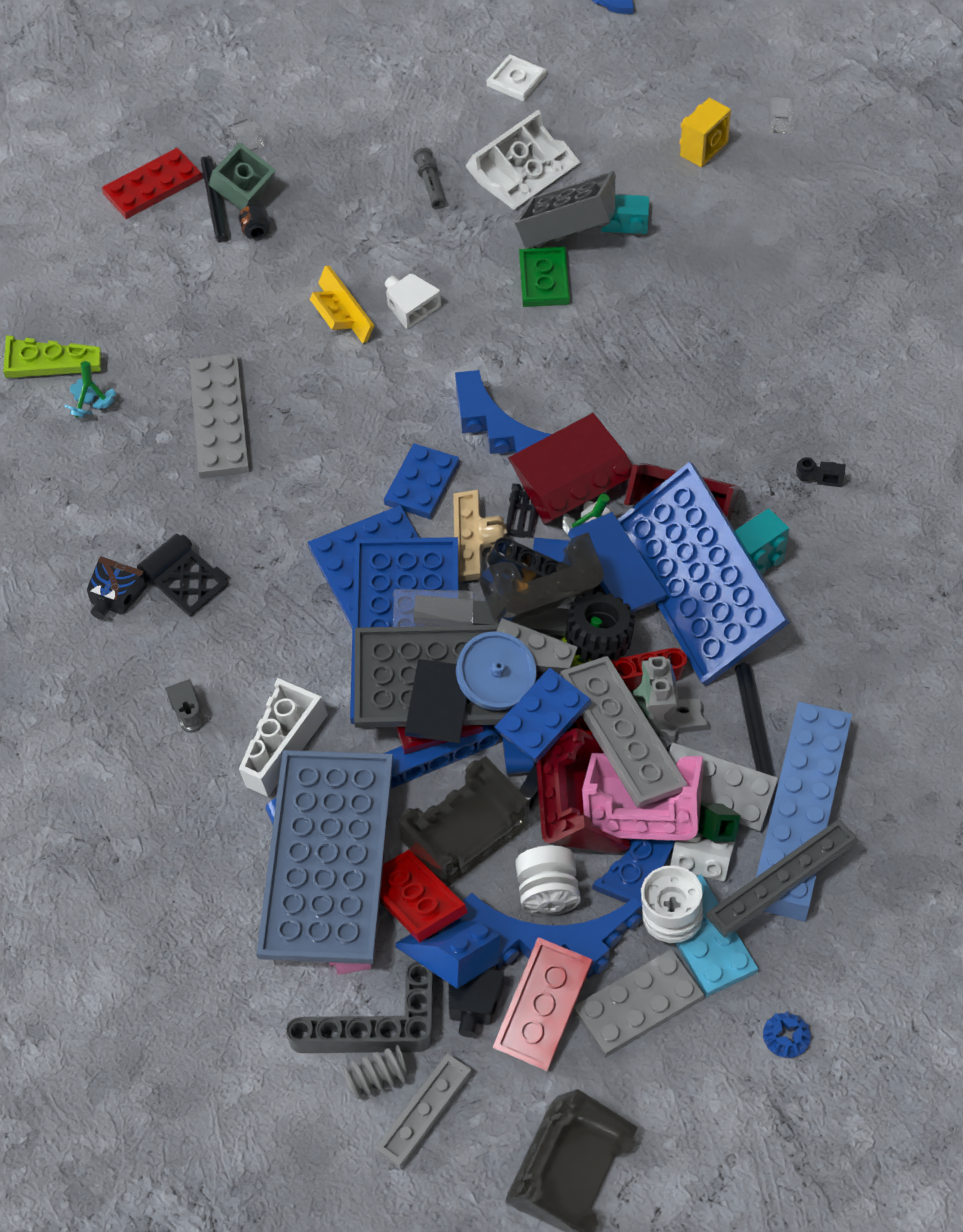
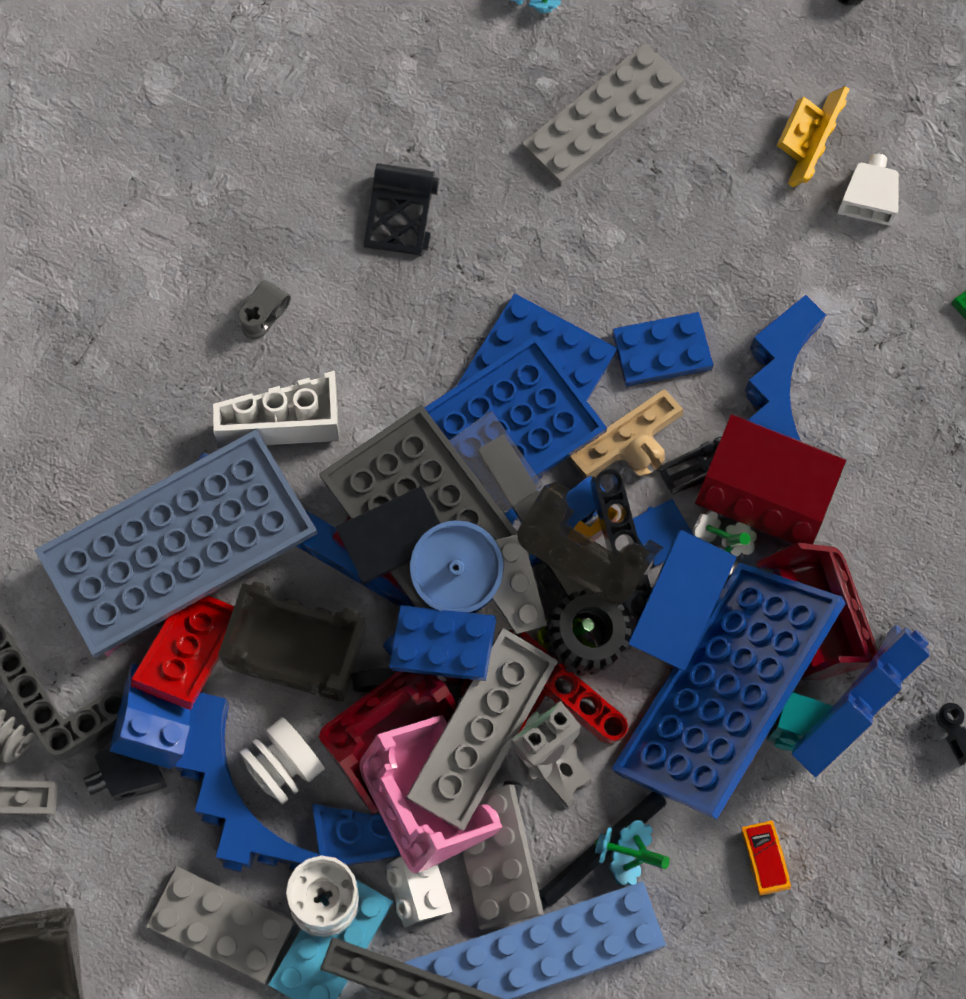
camera: 50 degrees right, 15 degrees up
(114, 587) = (341, 160): black torso -> none
(543, 1004) = (152, 838): plate -> none
(718, 822) = (450, 884): dark green brick -> none
(763, 696) = (630, 845): none -> medium azure plant
(773, 499) = (855, 710): none -> blue arch
(832, 628) = (766, 858): none -> slope

